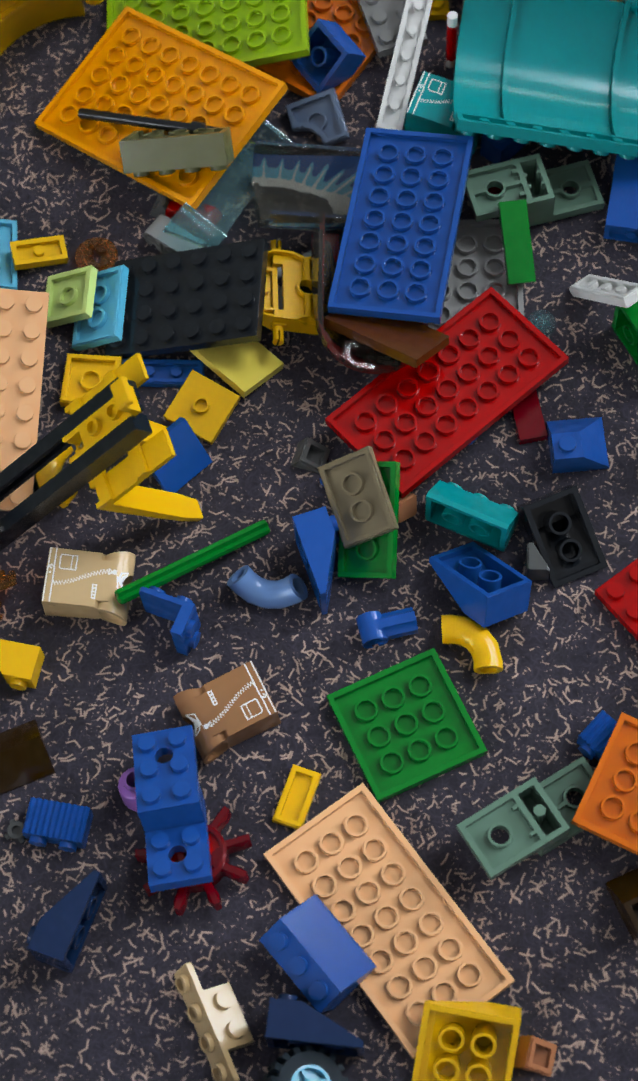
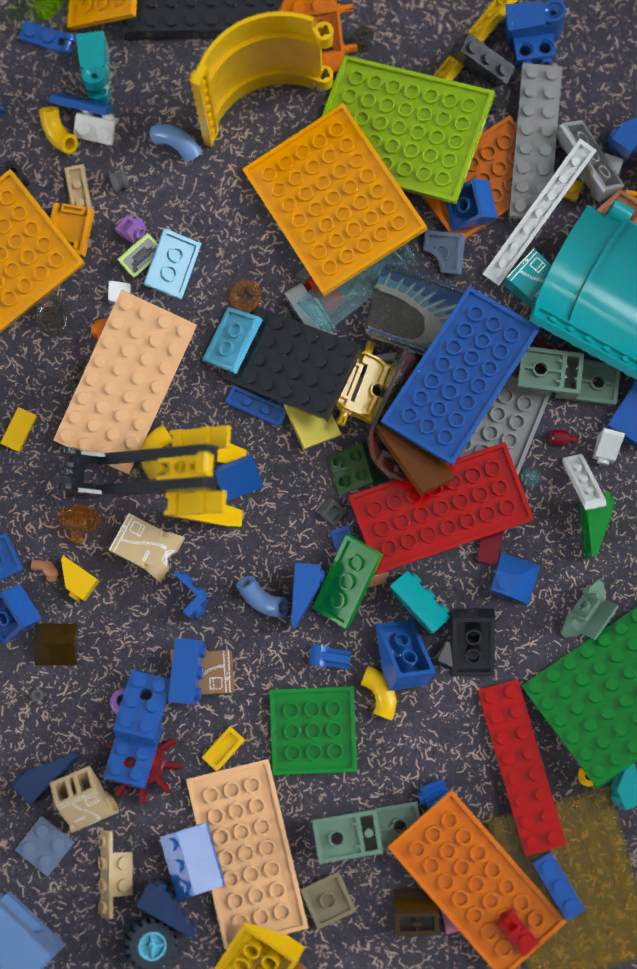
camera: 20 degrees right, 15 degrees up
(39, 252) = (206, 277): yellow plate -> none
(57, 824) = (64, 703): blue brick -> none
(71, 296) = (215, 322): yellowish green plate -> none
(84, 373) = (205, 393): yellow plate -> none
(104, 1026) = (45, 846): none -> sand blue plate
(132, 932) = (82, 799): none -> tan piece
(139, 121) = (348, 235): black bar -> none
(175, 151) = (327, 247): olive wedge -> none
(193, 561) = (220, 559): green axle -> none
(203, 406) = (272, 445): yellow plate -> none
(207, 706) = (187, 671): none -> blue brick
(316, 392) = (354, 469): none -> dark green bracket
(358, 497) = (345, 565): dark tan tile -> none
(451, 39) = (564, 231): bar -> none
(516, 242) = (538, 415): green tile -> none
(524, 933) = (328, 900): none -> dark tan plate
(556, 265) = (561, 437): none -> dark red cylinder
(617, 247) = (607, 446): none -> white slope

